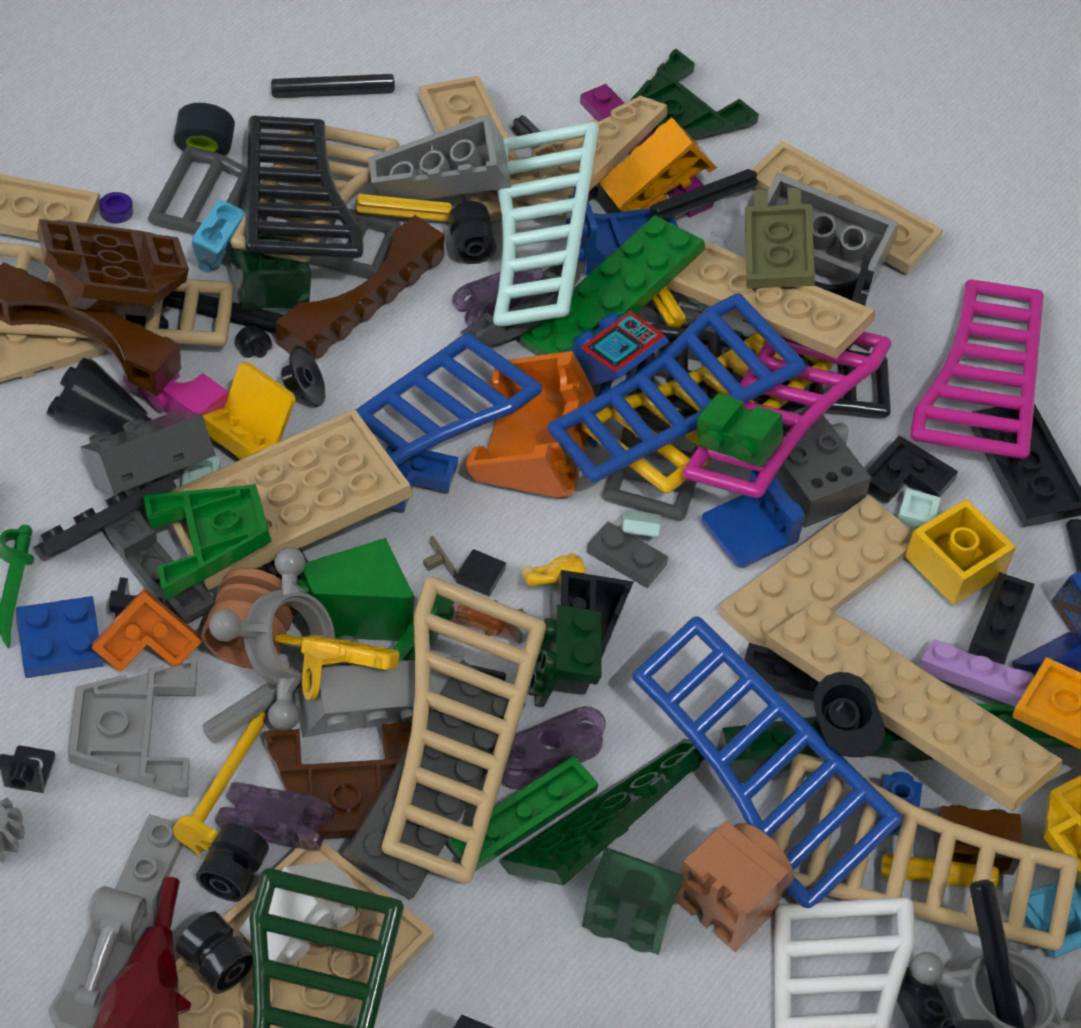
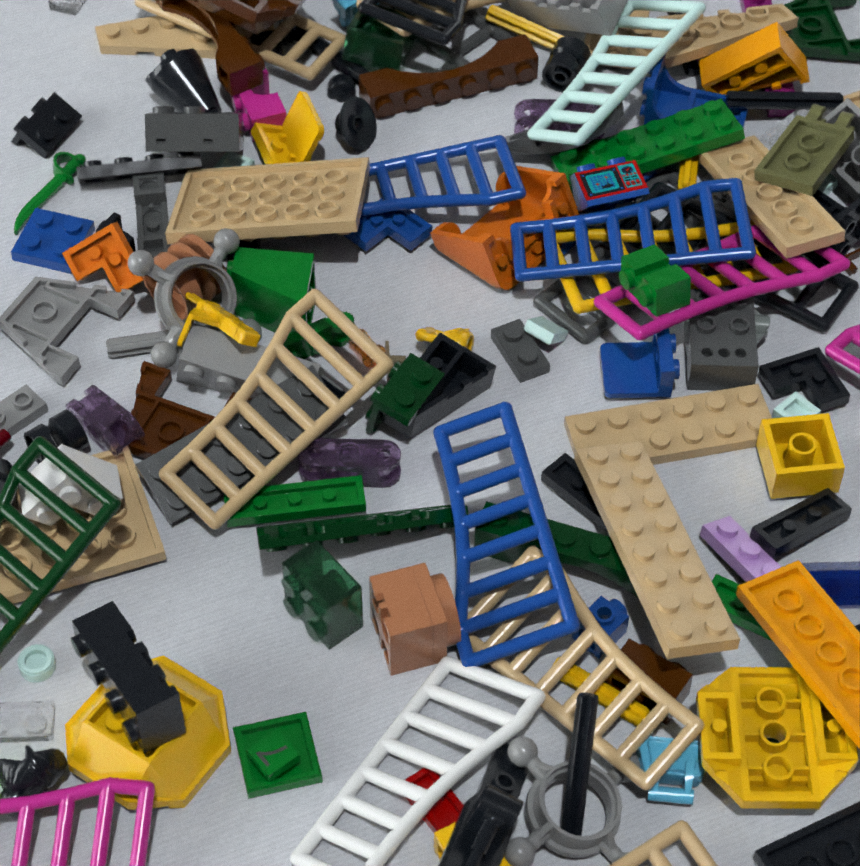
camera: 35 degrees right, 0 degrees up
(191, 829) = (43, 405): yellow piece -> none
(222, 529) = (202, 200): green wing -> none
(438, 559) = (367, 295): dark tan piece -> none
(481, 572) = (393, 318): black tile -> none
(848, 715) = (582, 527): black piece -> none

